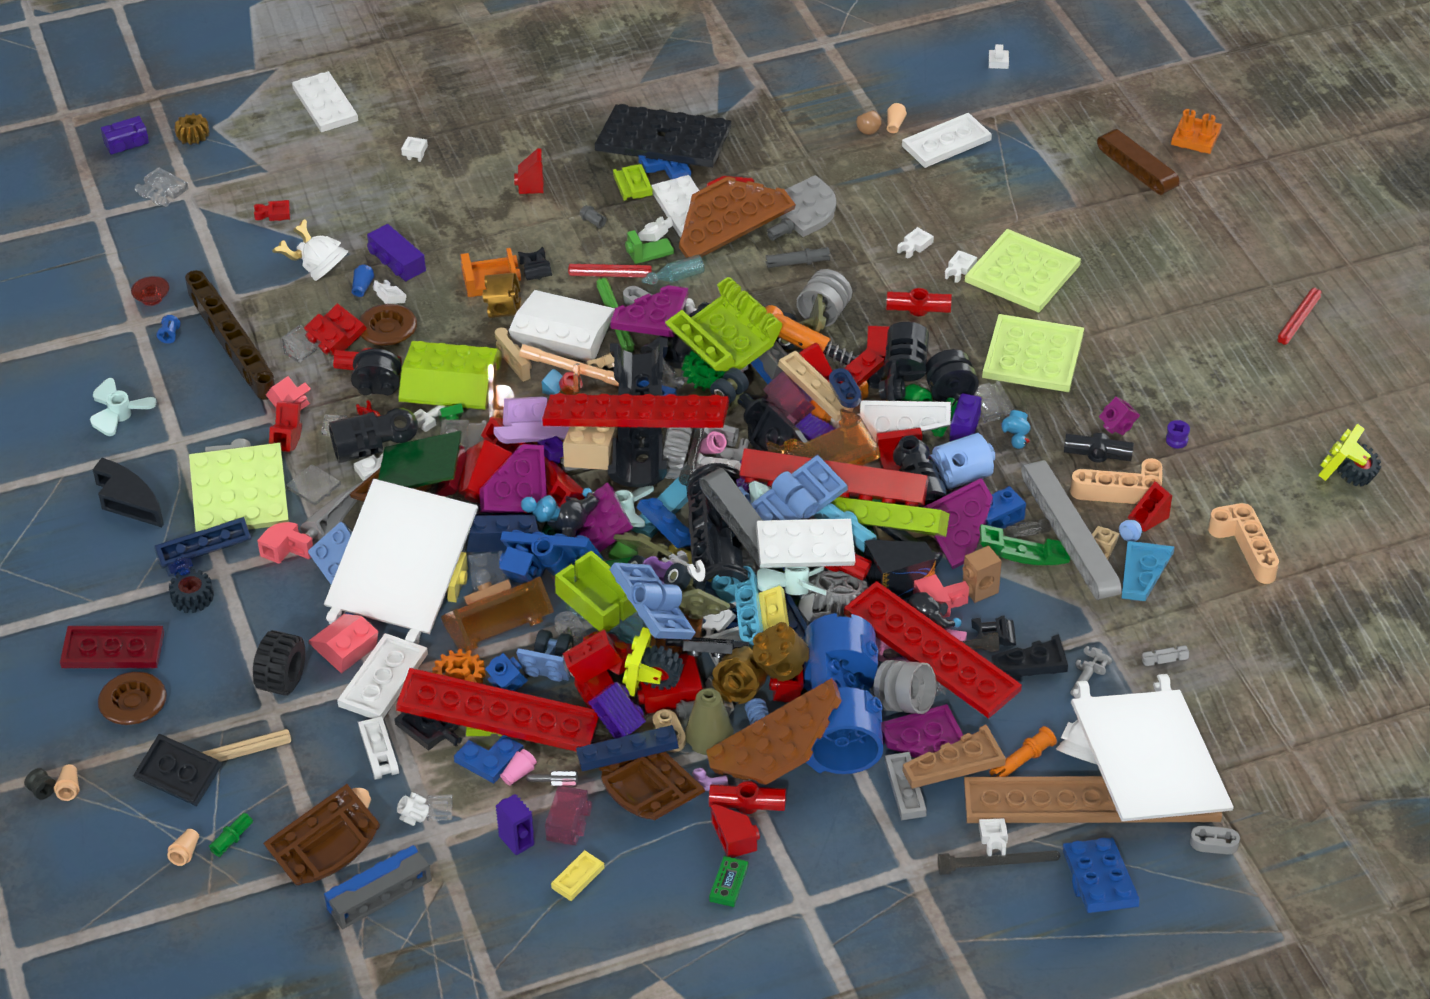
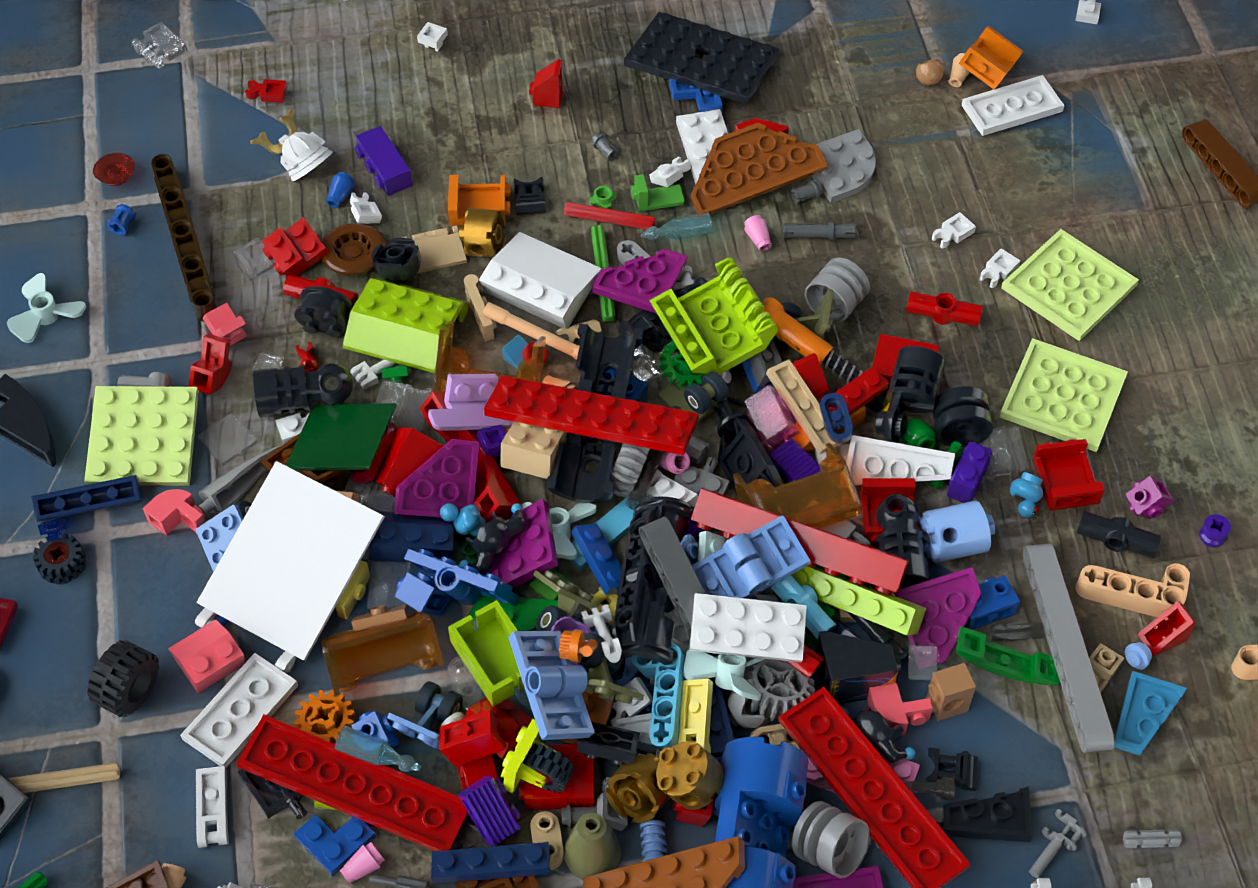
camera: 10 degrees right, 10 degrees up
(432, 325) = (397, 260): none -> black cylinder
(459, 317) = (439, 249): none -> tan piece
(509, 680) = (372, 749): none -> clear light blue wheel
(600, 255) = (603, 197): none -> bright green plate
(632, 182) = (657, 109): lime plate -> none
(664, 571) = (574, 646): none -> orange piece
(744, 265) = (758, 231): none -> bright pink cone
(920, 103) = (991, 57): none -> orange panel
(953, 554) = (922, 662): none -> clear panel
(1047, 410) = (1066, 475): none -> red panel

